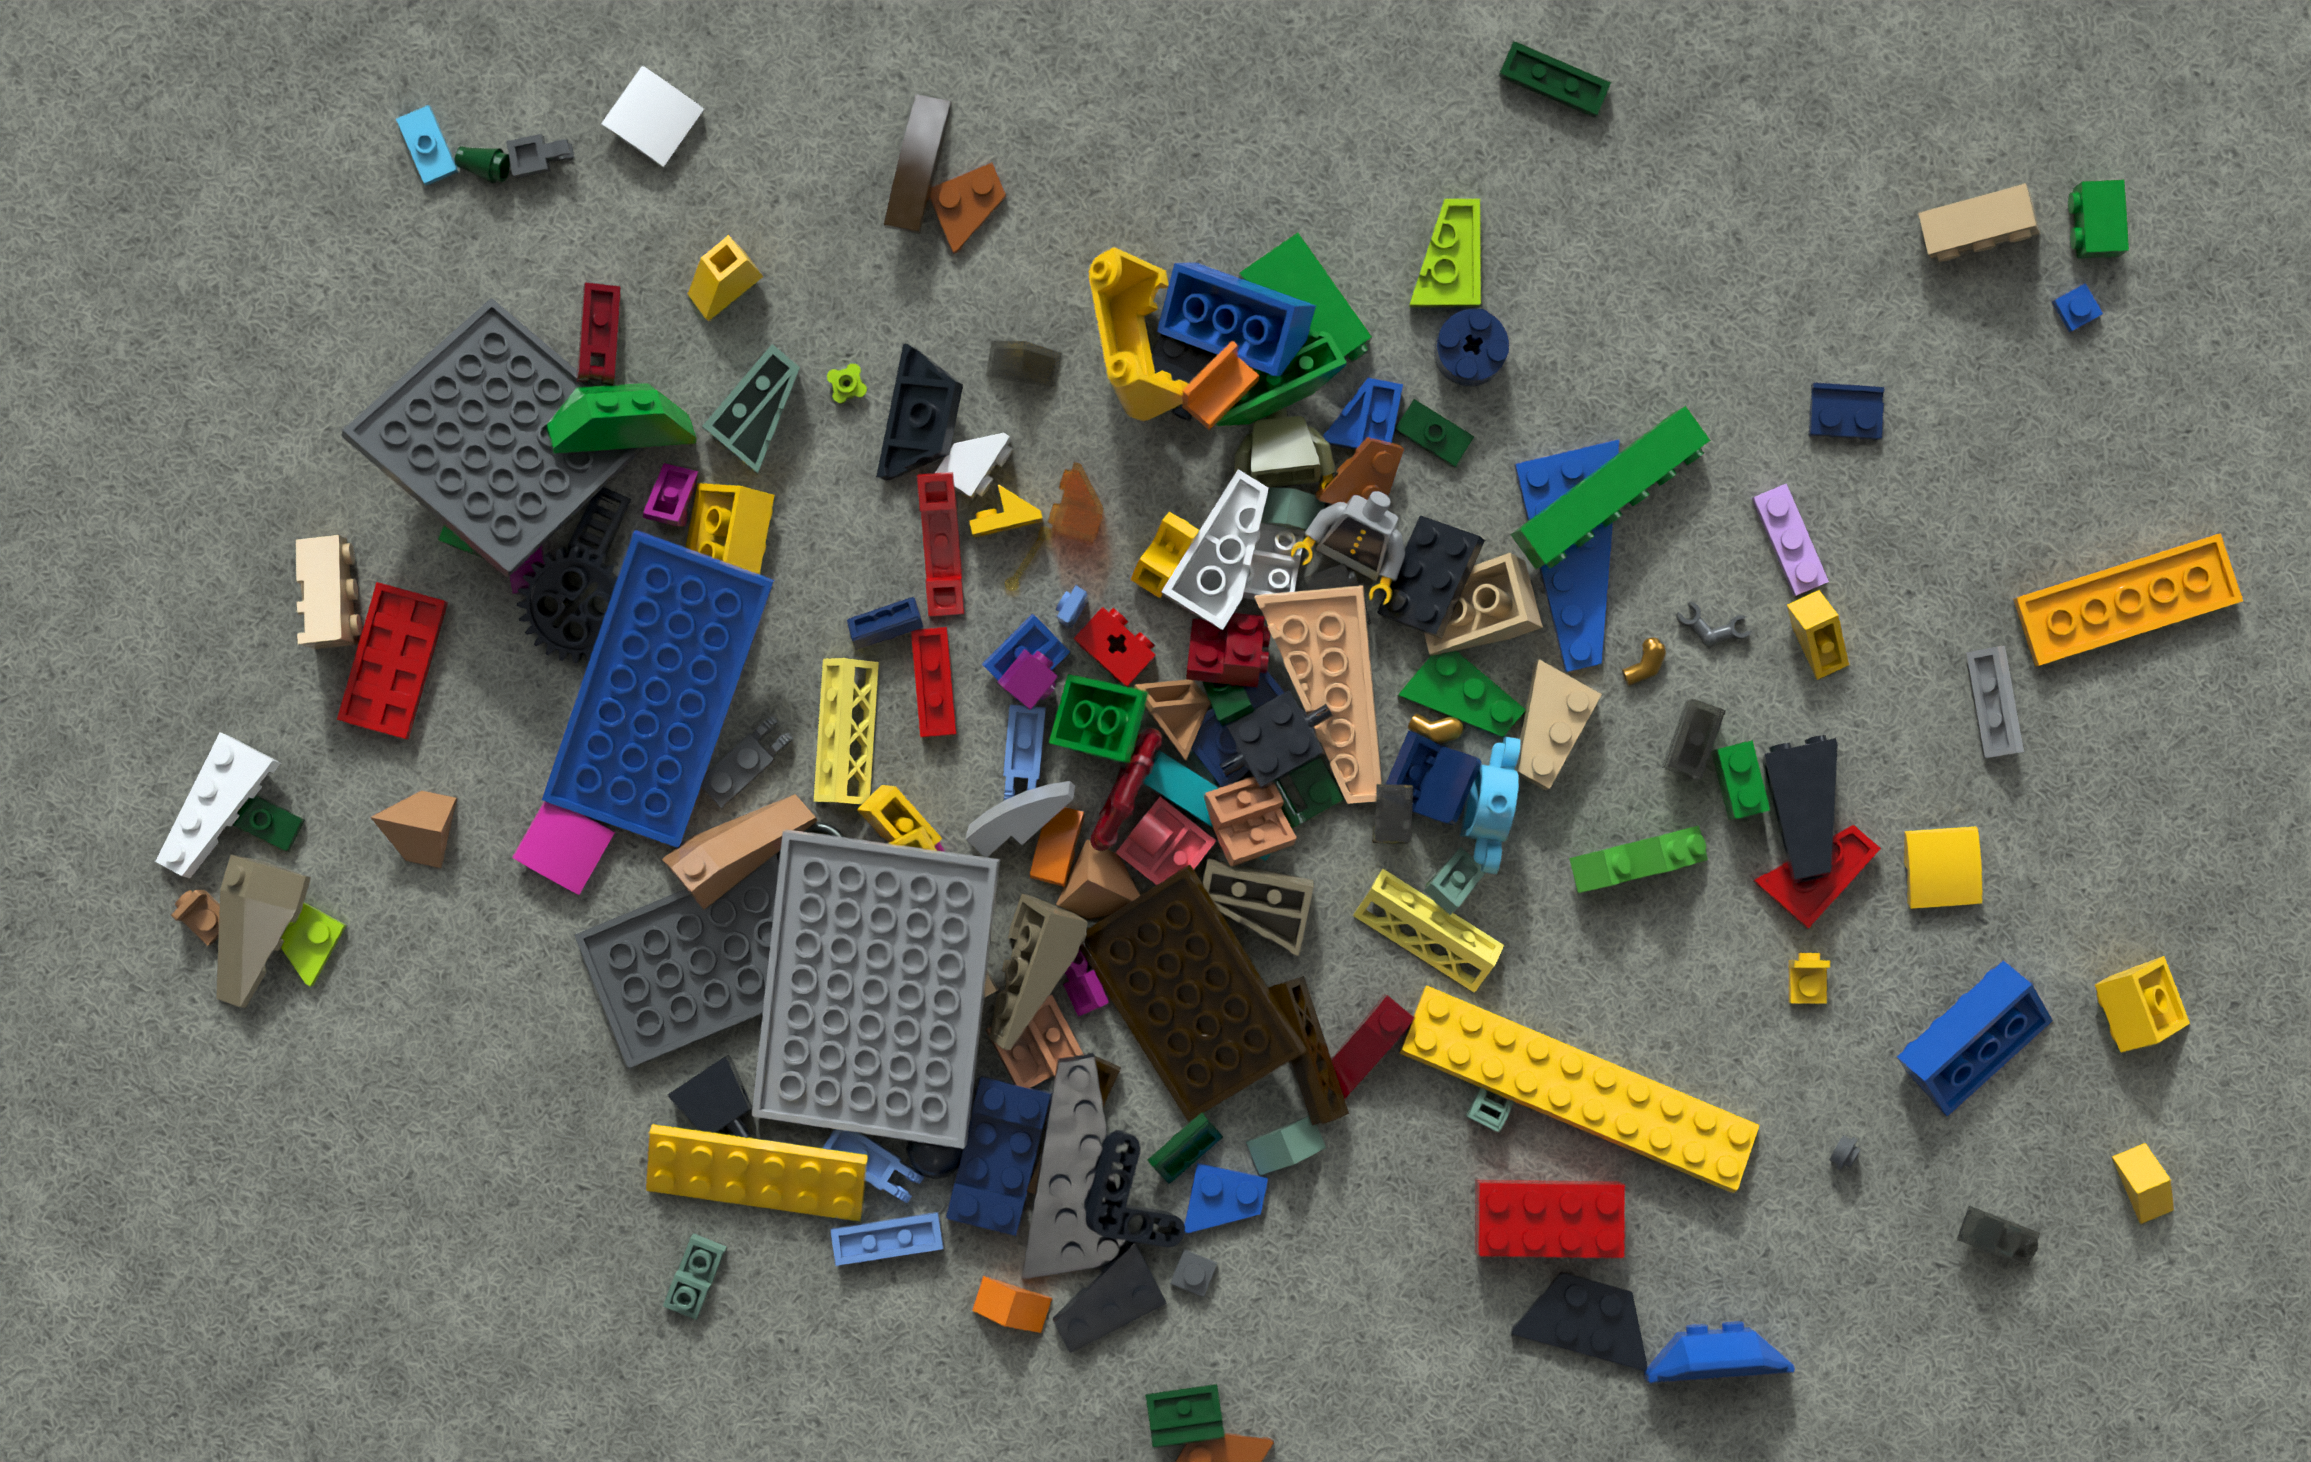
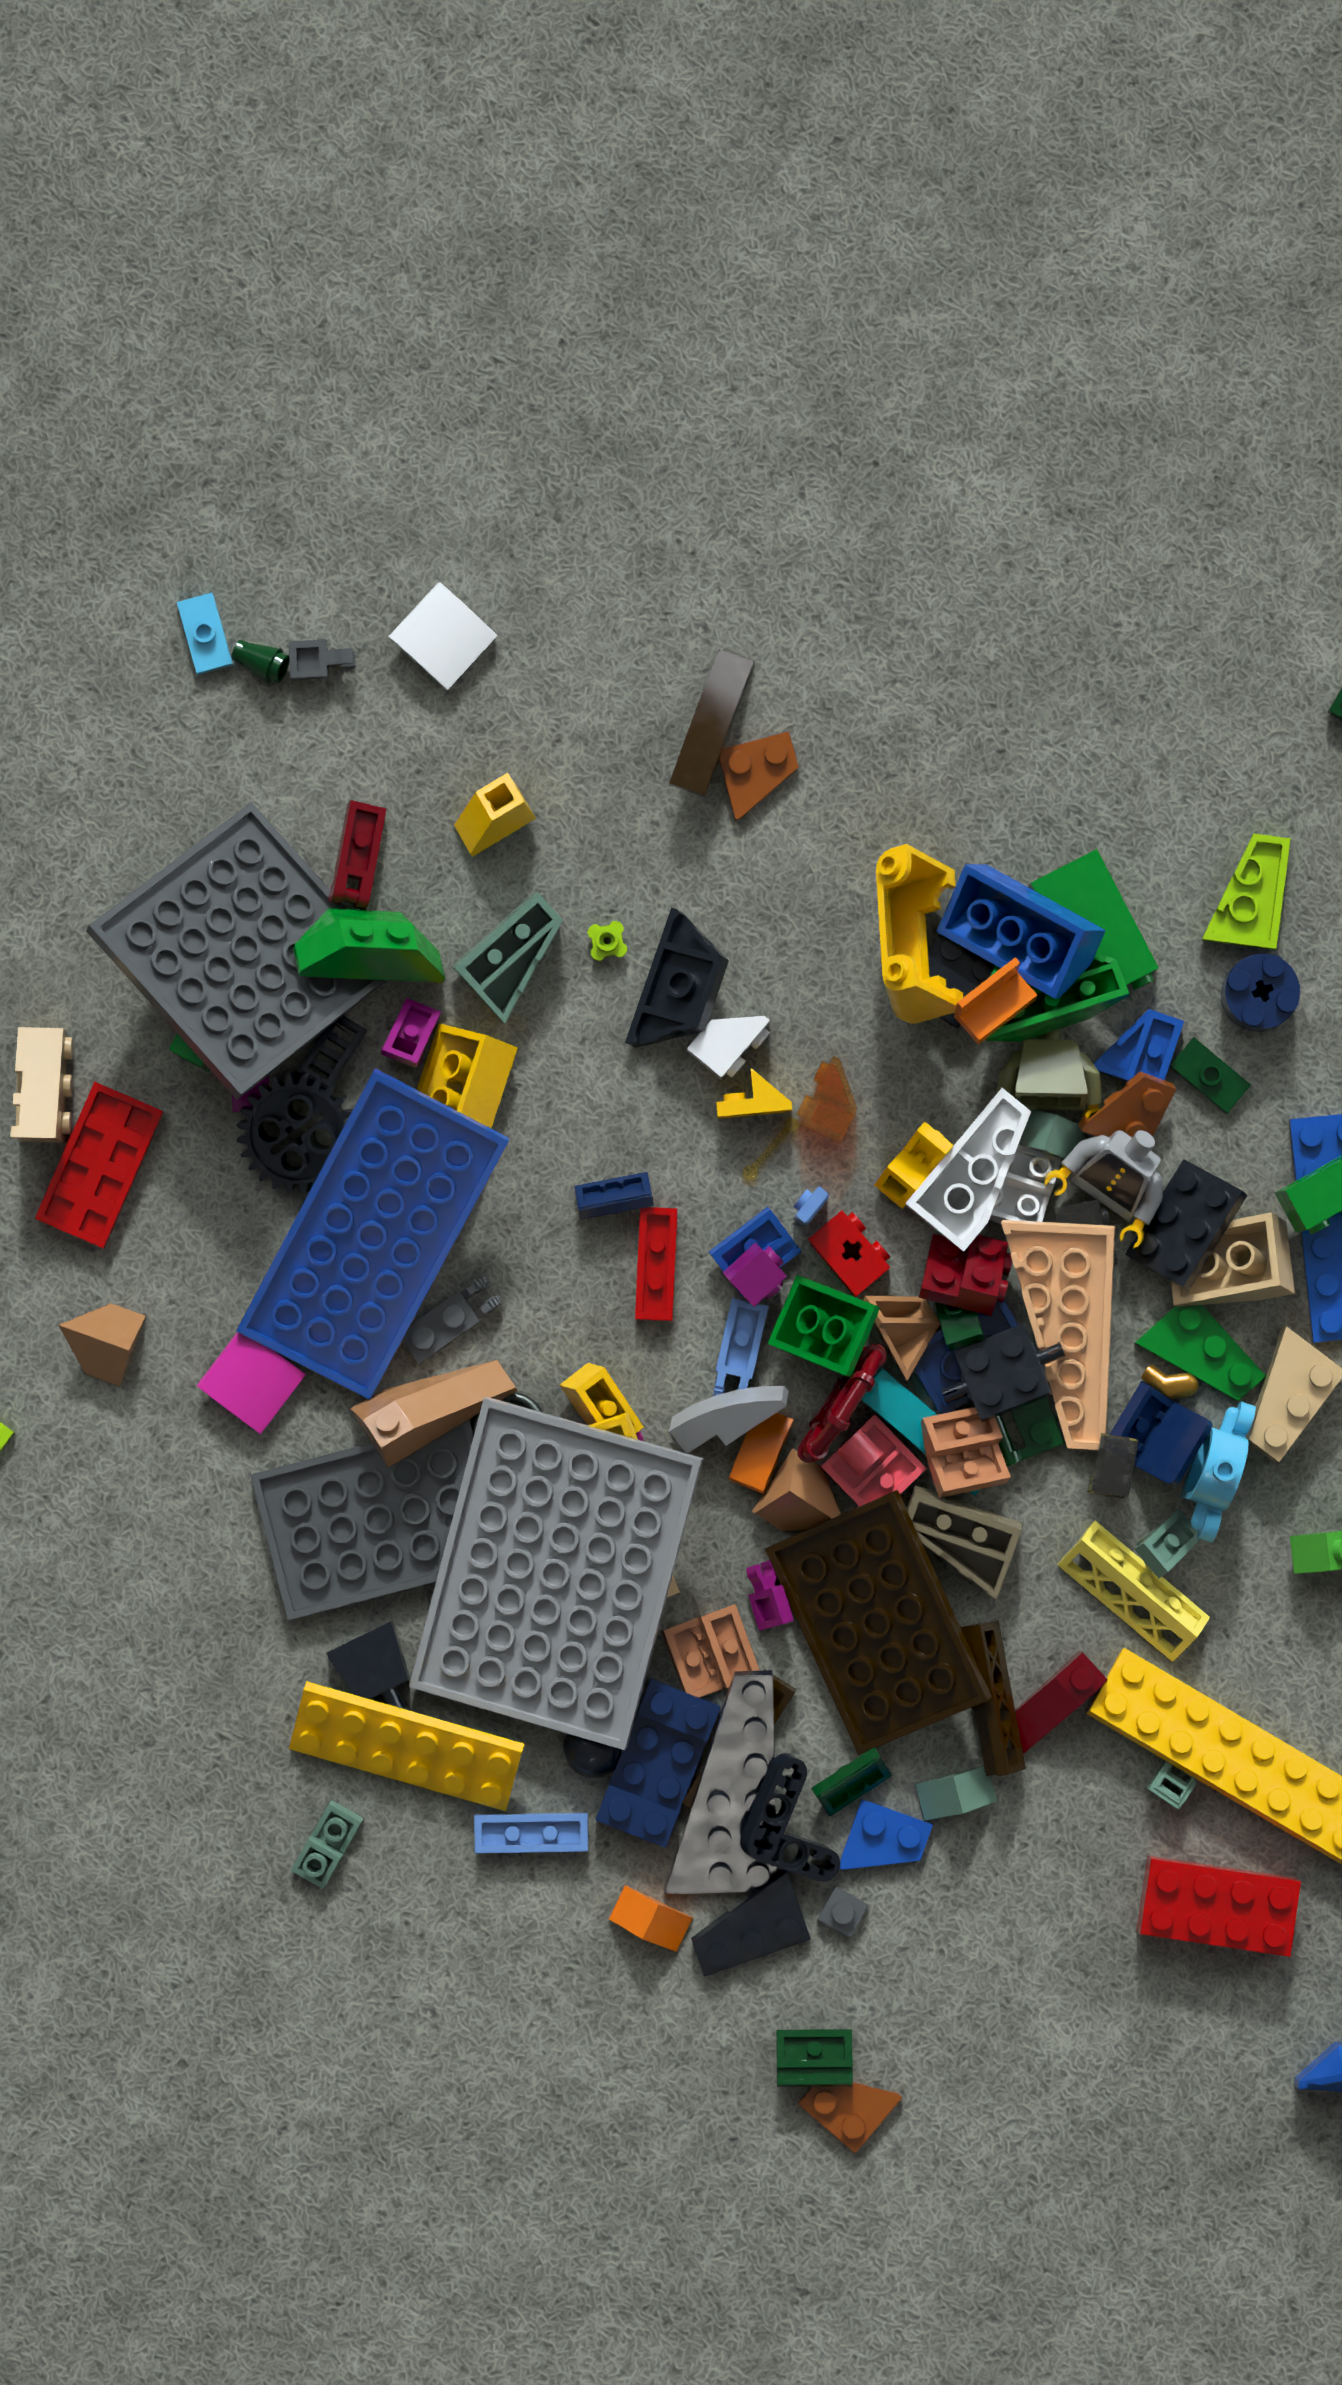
camera: 10 degrees right, 0 degrees up
(839, 730) = (551, 1301): light yellow fence -> none
(880, 1161) = (535, 1753): medium blue hinge -> none
(941, 543) = (683, 1122): red slope -> none
(1023, 363) = (793, 944): clear smoke slope -> none
(1042, 952) = (730, 1560): dark tan wedge -> none
(1586, 1320) = (1242, 2016): black wing -> none

